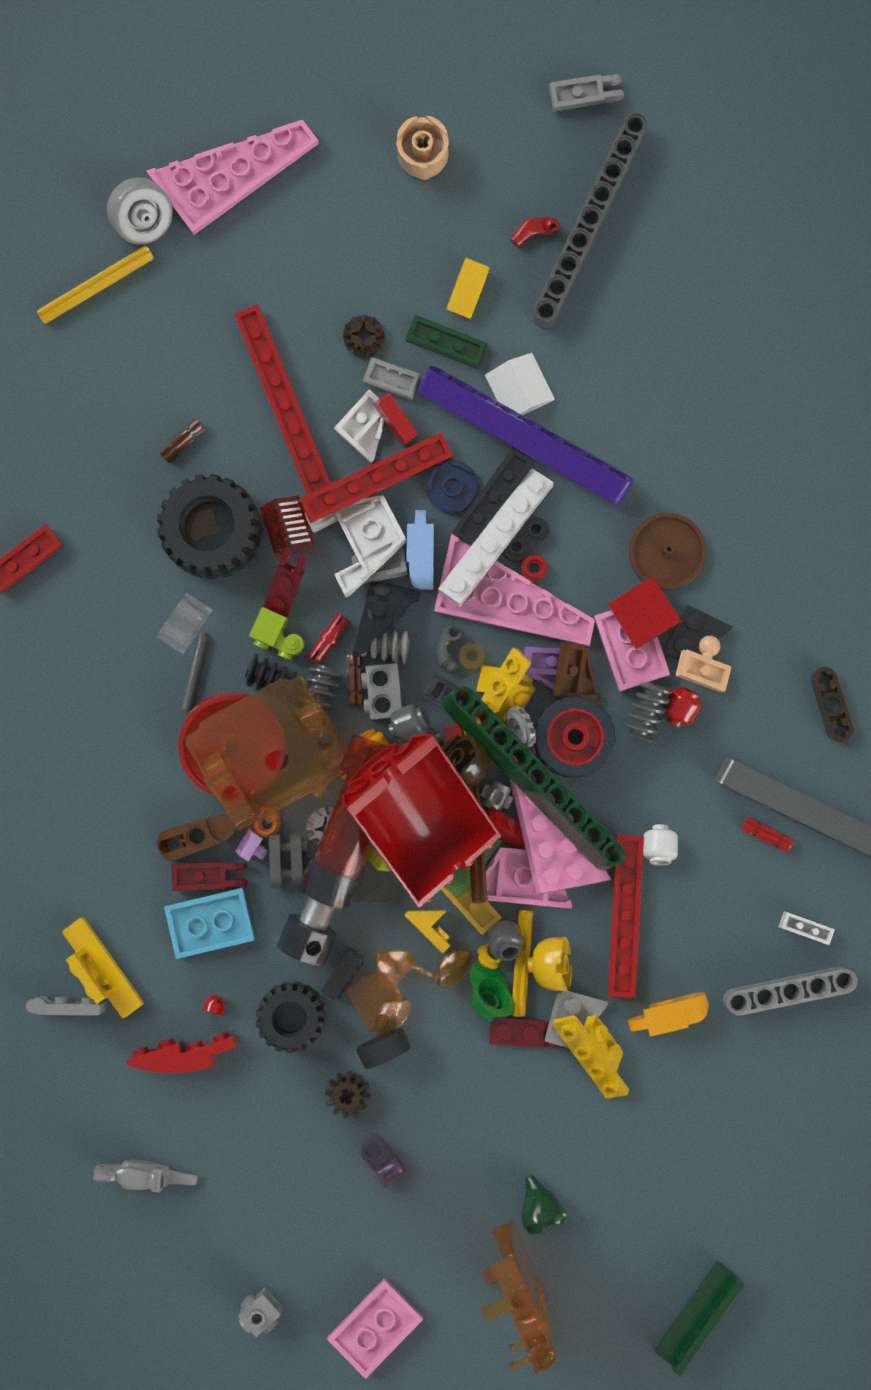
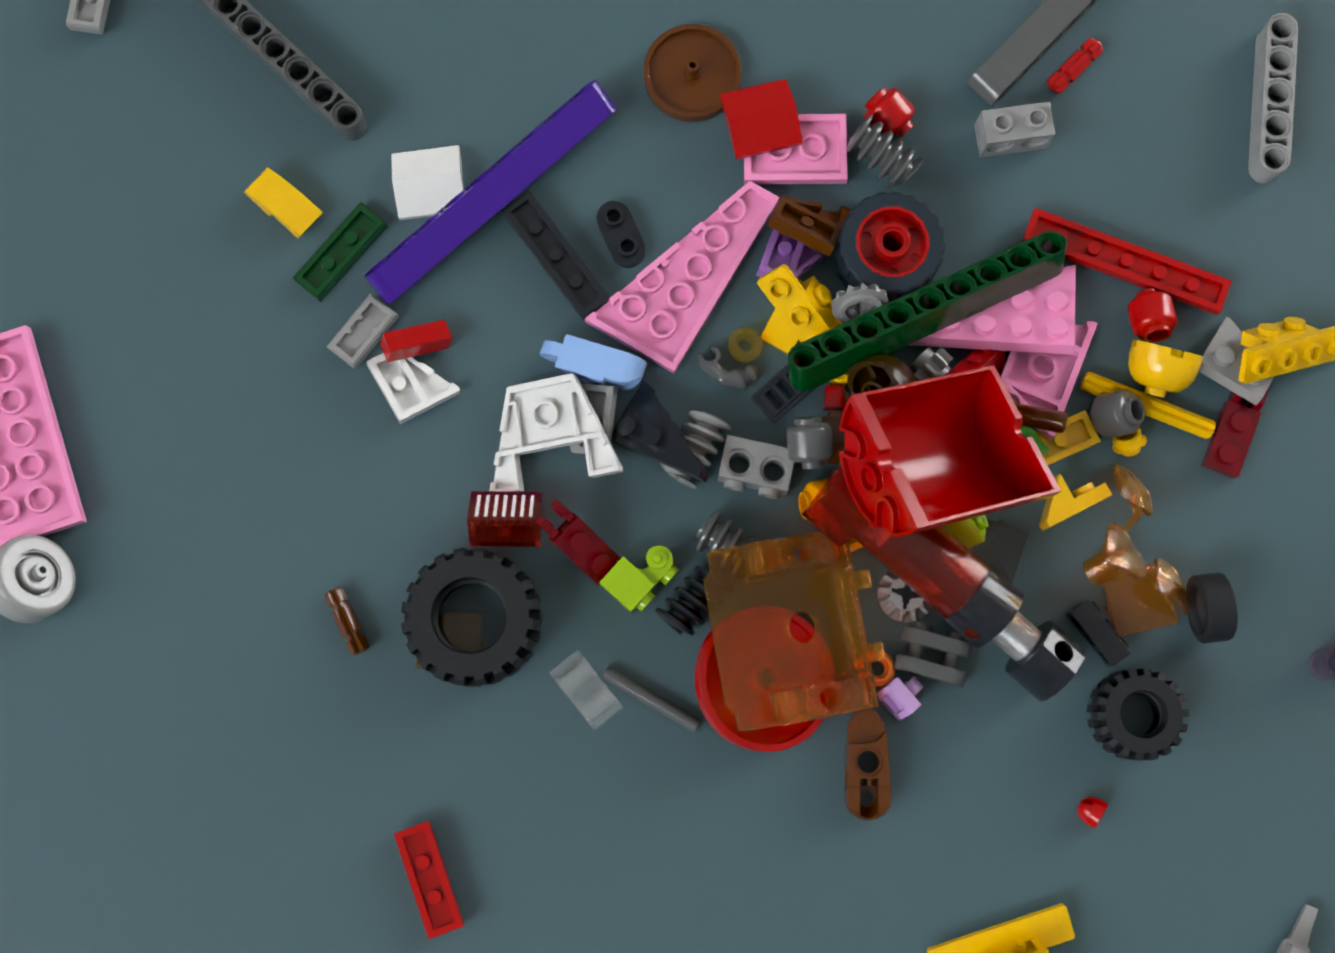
camera: 75 degrees left, 5 degrees down
(95, 284) = (103, 670): yellow axle -> none
(173, 1058) = (1147, 887): red slope -> none
(205, 875) = (921, 768): dark red hinge -> none
(209, 923) = (984, 783): medium azure plate -> none
(282, 399) = (348, 474): red plate -> none
(328, 638) = (665, 514): red pin -> none
(354, 680) = (728, 498): reddish brown axle -> none
(357, 1097) = (1255, 688): dark brown gear -> none
(372, 344) = (302, 363): dark brown gear -> none
(375, 477) = (482, 389): red plate -> none
(422, 161) = (85, 198): light nougat brick -> none
(452, 486) = (524, 302): dark blue tile -> none
(490, 992) = (1177, 454): green piece -> none
(495, 537) = (608, 266): white plate -> none
(533, 227) = (236, 101): red arm -> none
(540, 562) = (659, 225): red plate -> none
(589, 946) = (1152, 315): none -> red head
(660, 845) = (1052, 191): white head -> none
(671, 1014) = (1264, 243): light orange piece -> none
(692, 629) = (806, 72): black wing -> none
(699, 803) = (1014, 129): none -> light grey brick
(702, 668) = (850, 74): light nougat plate -> none
(806, 928) = (1201, 56): white piece -> none

